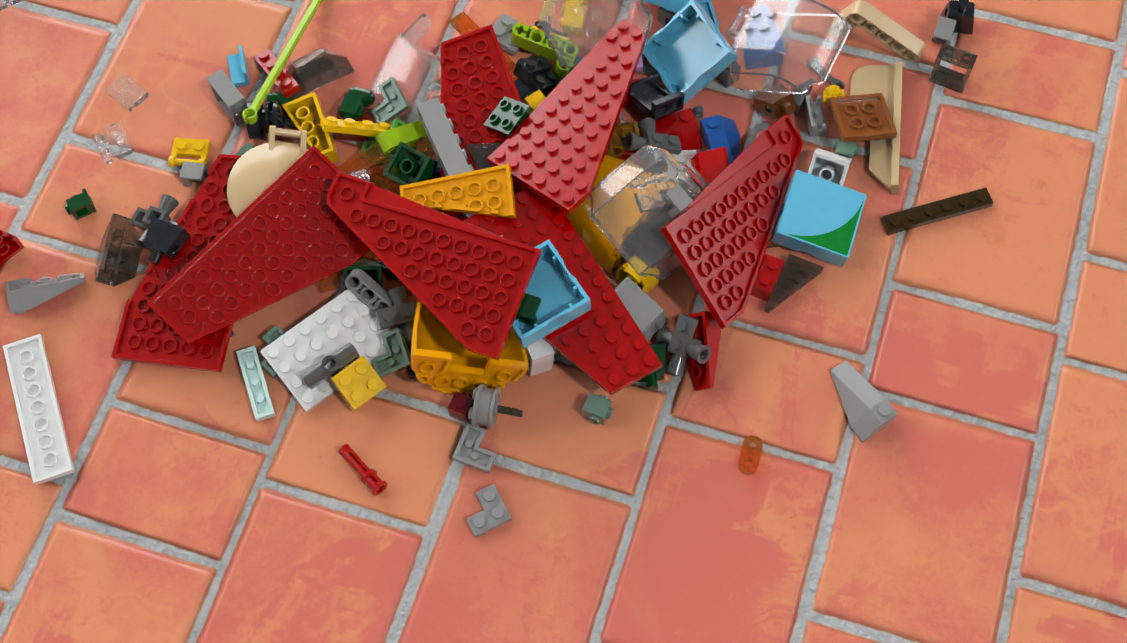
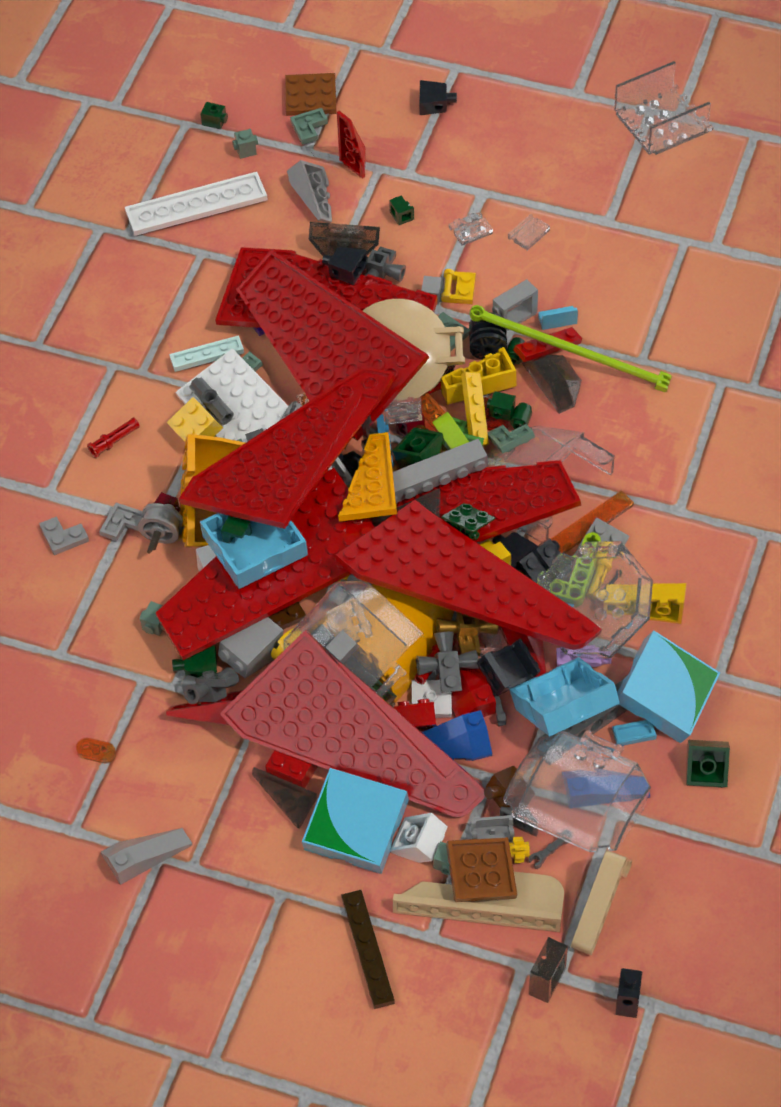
camera: 90 degrees right, 10 degrees down
(944, 30) = (607, 971): light grey panel -> none

